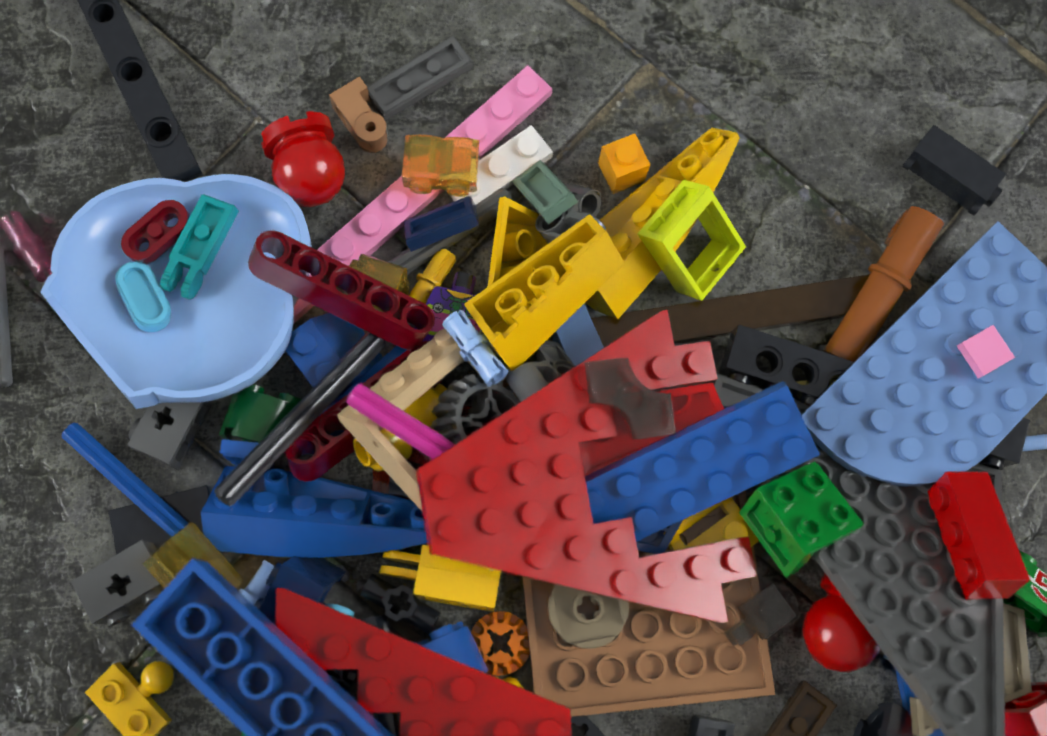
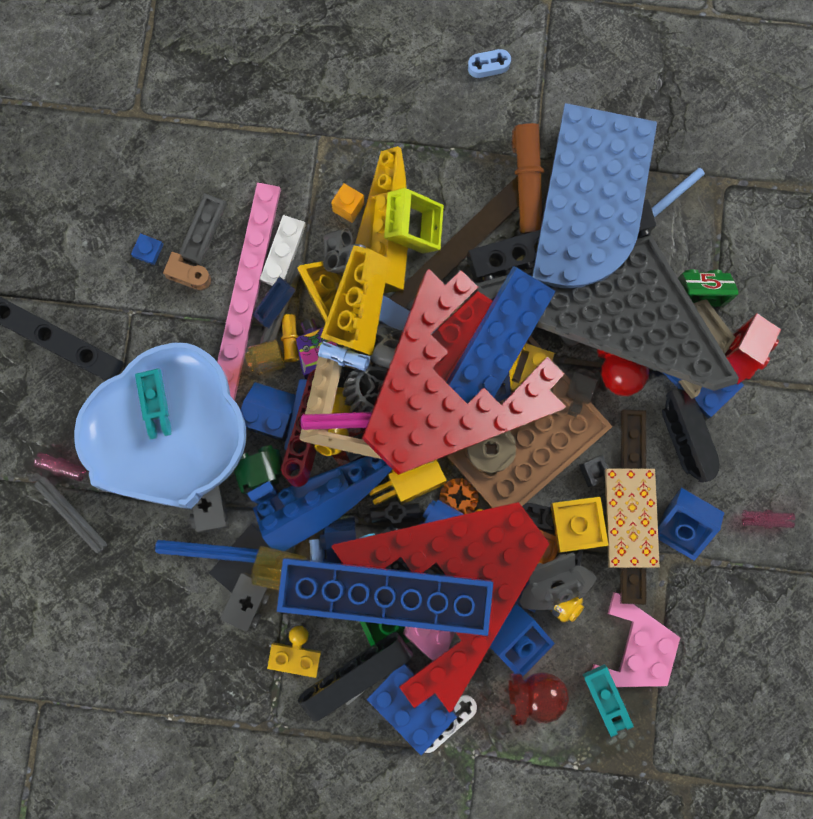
camera: 30 degrees left, 5 degrees up
(143, 296) = (144, 450): medium azure tile -> none
(154, 229) = (122, 411): dark red plate -> none
(298, 419) = (279, 453): black axle -> none
(304, 158) = (177, 317): red tile -> none
(332, 274) = (243, 381): dark red beam -> none
(334, 57) = (147, 249): none -> blue plate
(441, 164) = (252, 270): clear yellow brick -> none
(544, 191) = (317, 247): sand green tile -> none
(615, 385) = (431, 326): clear smoke tile -> none
(799, 516) = (566, 329): green bracket -> none
(928, 110) = (489, 63): none -> light blue beam
(955, 170) = (524, 87): black brick -> none
(977, 536) = (659, 277): red brick -> none
(985, 351) = (603, 179): bright pink tile -> none

